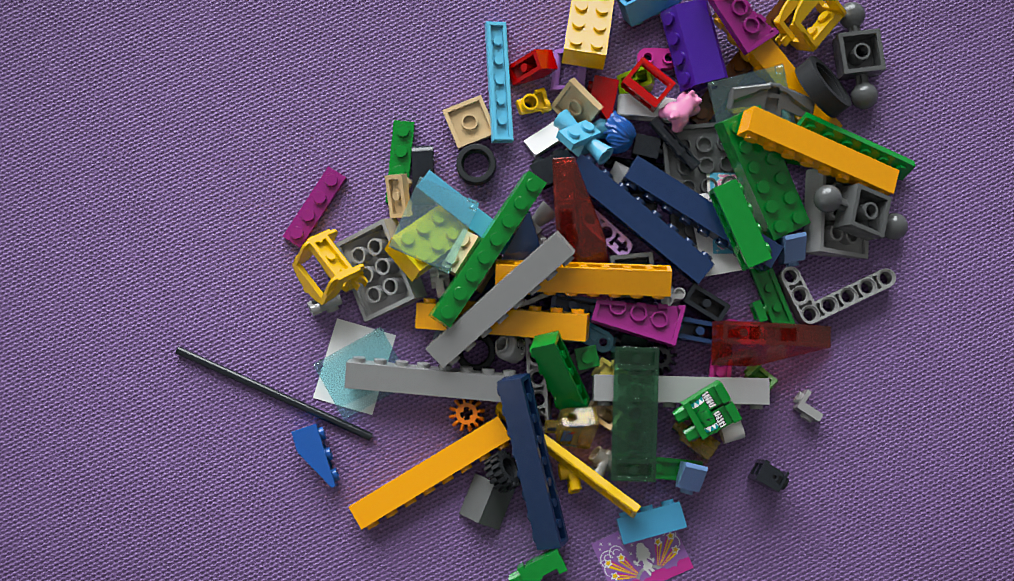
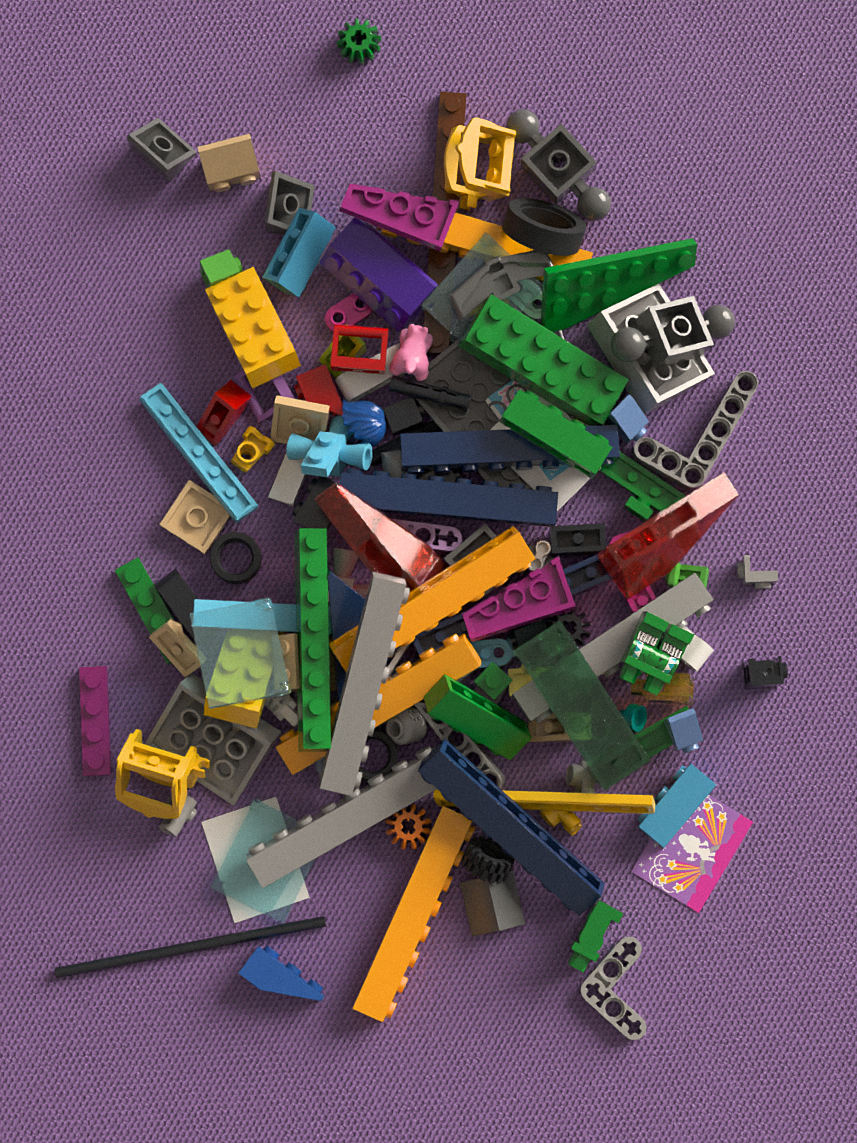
camera: 30 degrees left, 0 degrees up
(574, 427) = (530, 762): clear yellow torso -> none
(664, 445) = (635, 716): none -> teal tile
(816, 151) = (584, 303): light orange brick -> none

